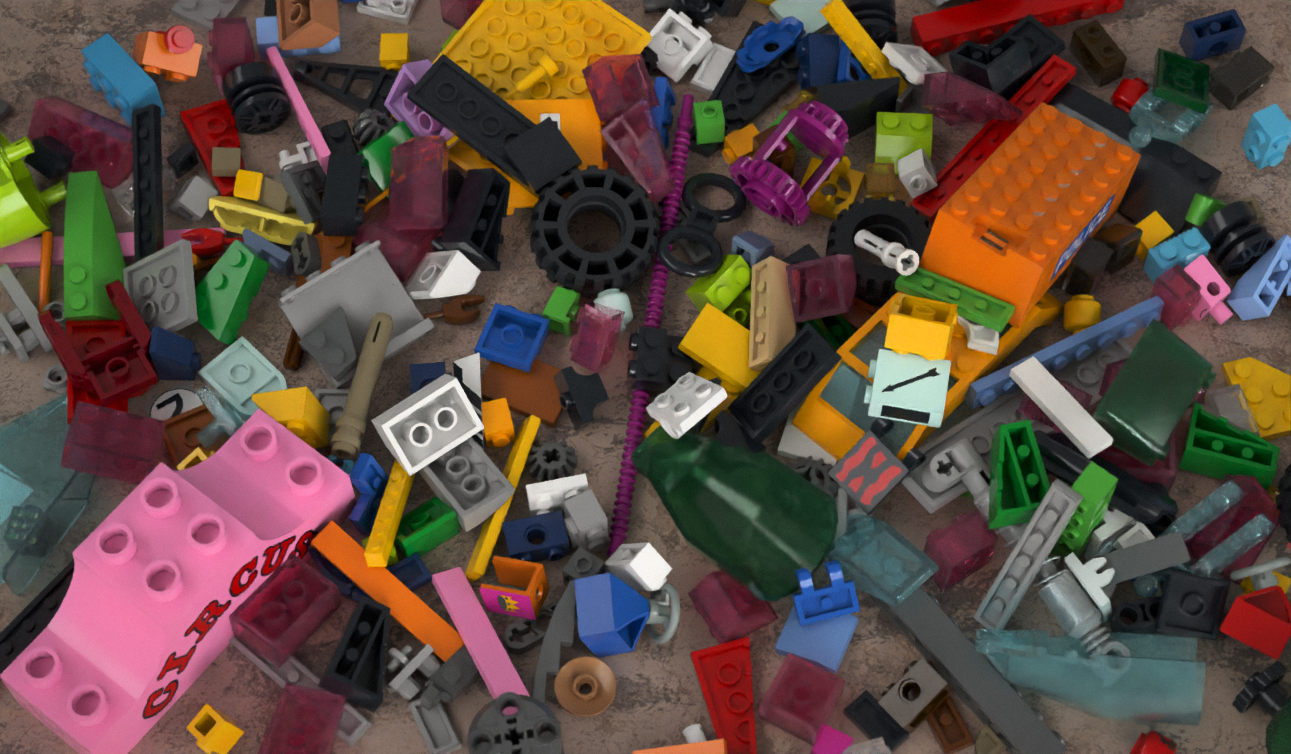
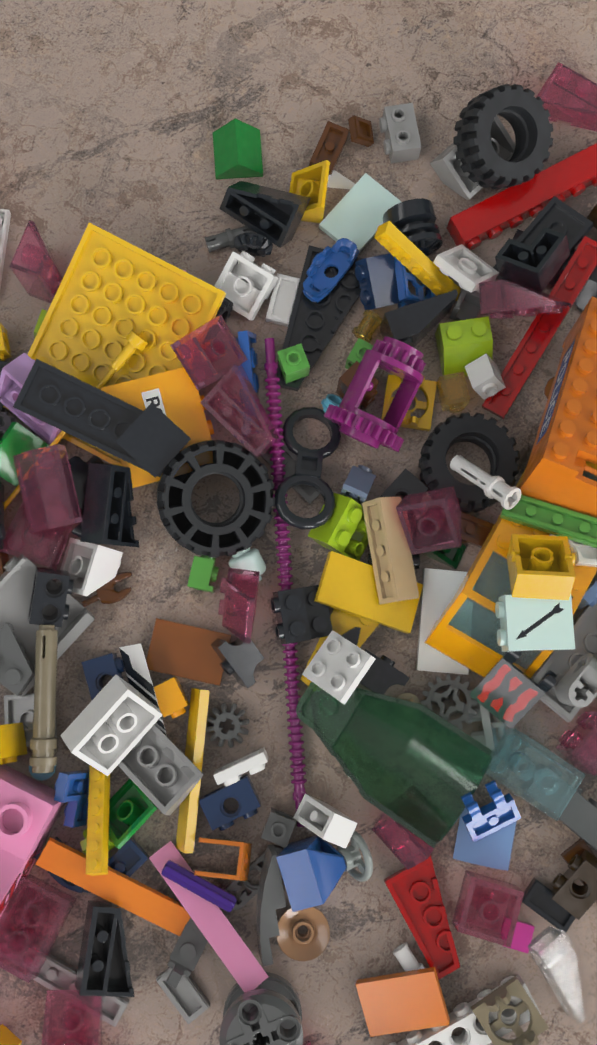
camera: 20 degrees left, 20 degrees up
(388, 290) = (43, 596): none -> black brick
(402, 682) = (146, 949): light grey hips -> none
(481, 607) = (199, 886): none -> dark purple axle
(513, 337) = (166, 613): blue plate -> none
(586, 522) = (271, 787): light grey brick -> none
(739, 143) = (325, 377): light orange brick -> none
(784, 383) = (418, 623): black plate -> none

